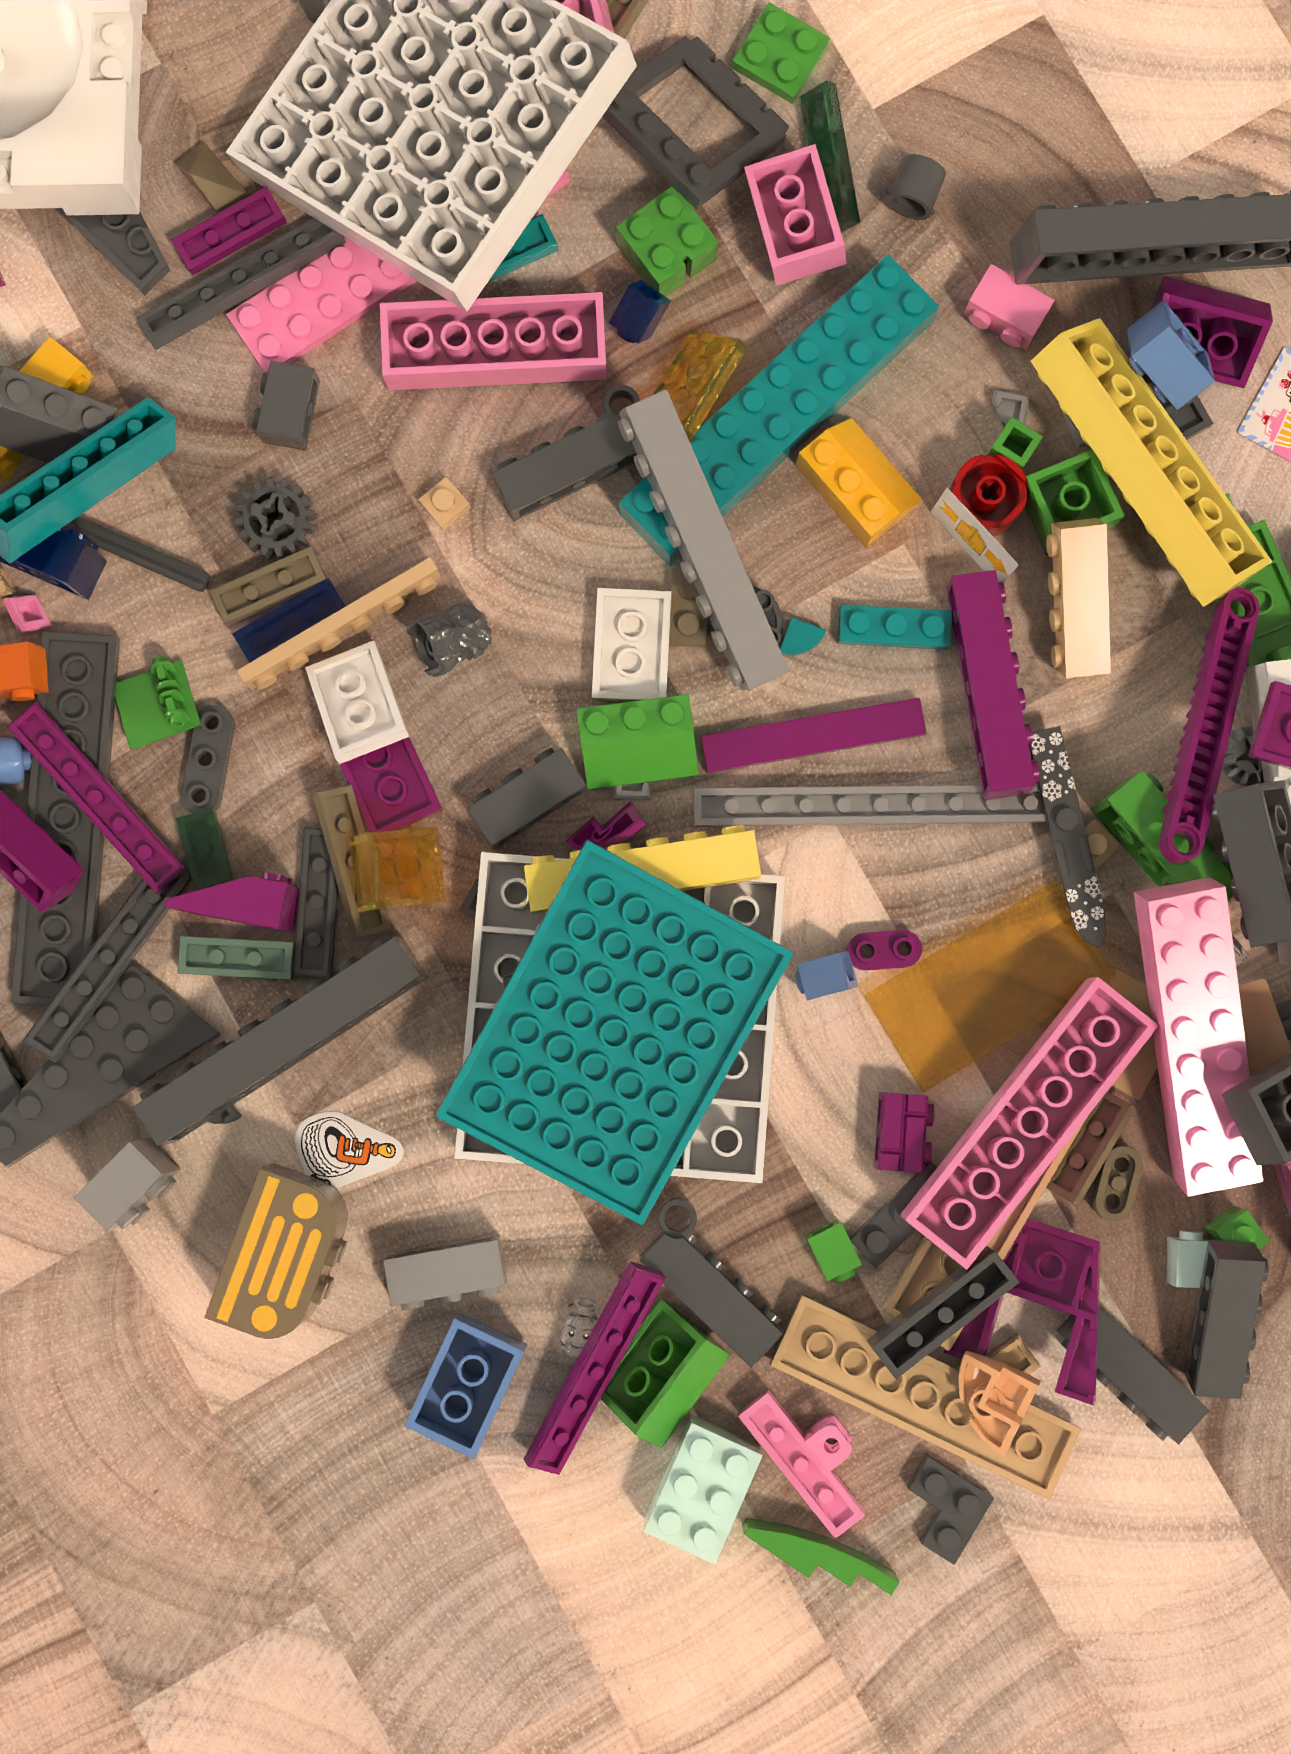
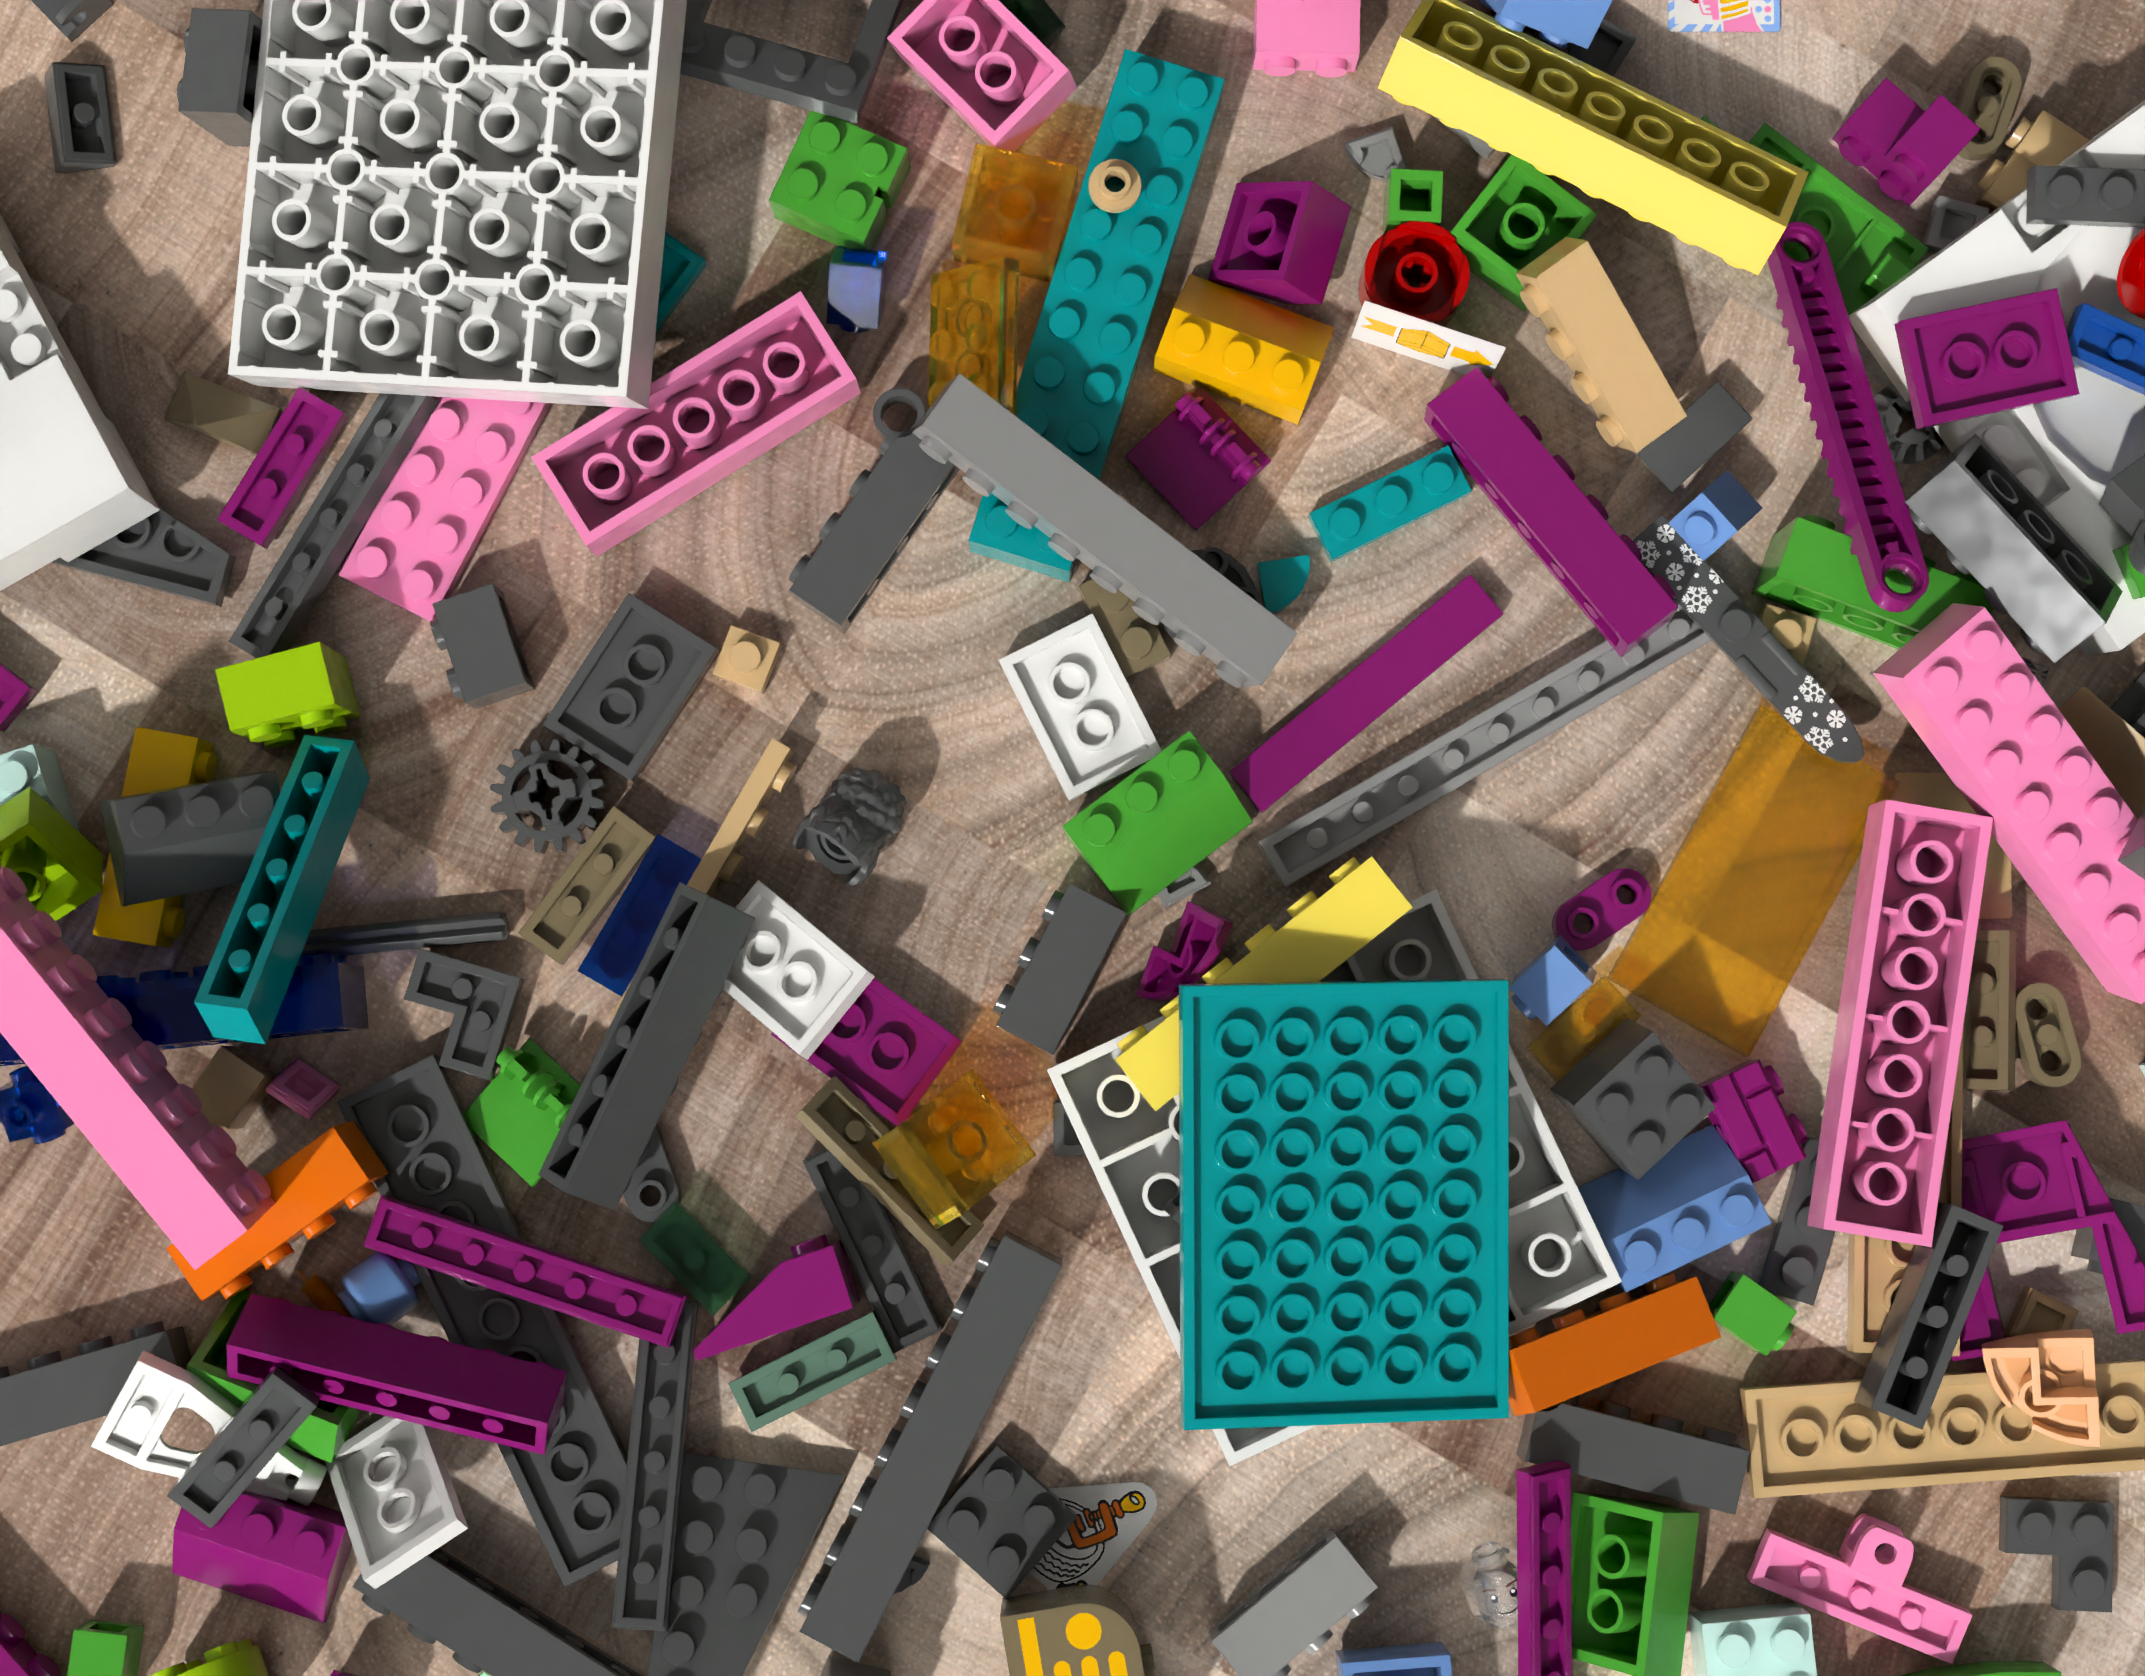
camera: 30 degrees left, 0 degrees up
(152, 367) = (287, 694): none -> lime piece
(163, 620) = (481, 1007): none -> dark grey plate
(245, 701) = (646, 1047): none -> dark grey brick
(299, 1115) = (1001, 1521): none -> dark grey plate
(363, 480) = (631, 687): none -> dark grey plate
(731, 1217) = (1608, 1343): none -> orange brick
(763, 315) = (1015, 210): none -> clear yellow brick
(792, 533) = (1198, 458): none -> magenta hinge
(821, 1157) = (1676, 1210): none -> medium blue slope
(828, 342) = (1114, 201): none -> tan plate
(828, 1018) = (1581, 1028): none -> clear yellow plate
(835, 1075) = (1633, 1098): none -> dark grey brick
(919, 427) = (1280, 241): none -> magenta slope
(1093, 744) = (1715, 515): none -> medium blue brick
(1109, 691) = (1696, 438): none -> dark grey slope

